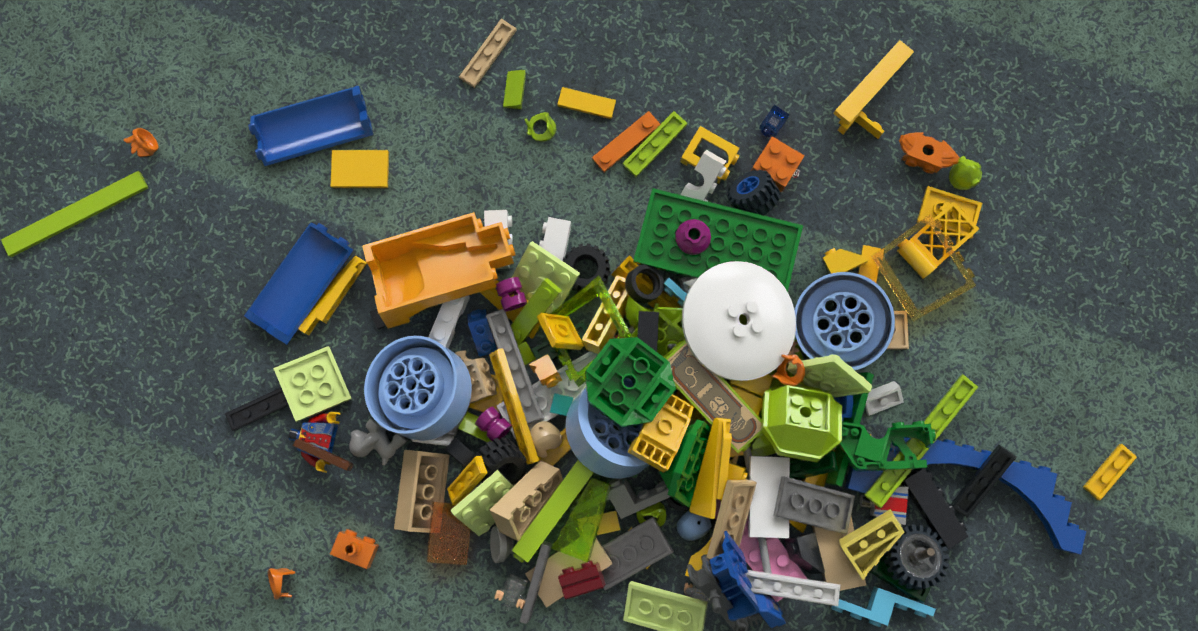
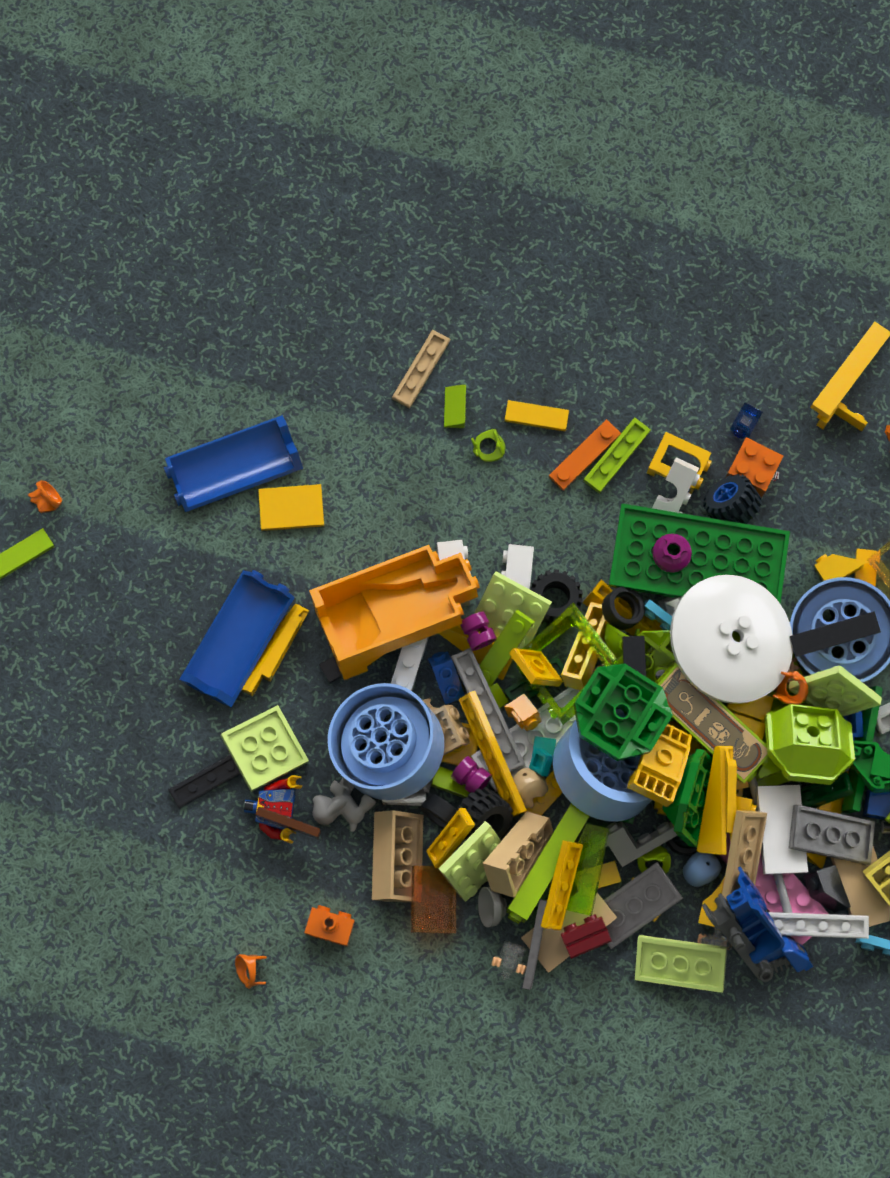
camera: 10 degrees left, 5 degrees down
(556, 417) = (541, 762): none -> teal tile
(562, 532) = (561, 885): none -> yellow tile
(835, 323) = (835, 634): none -> black tile

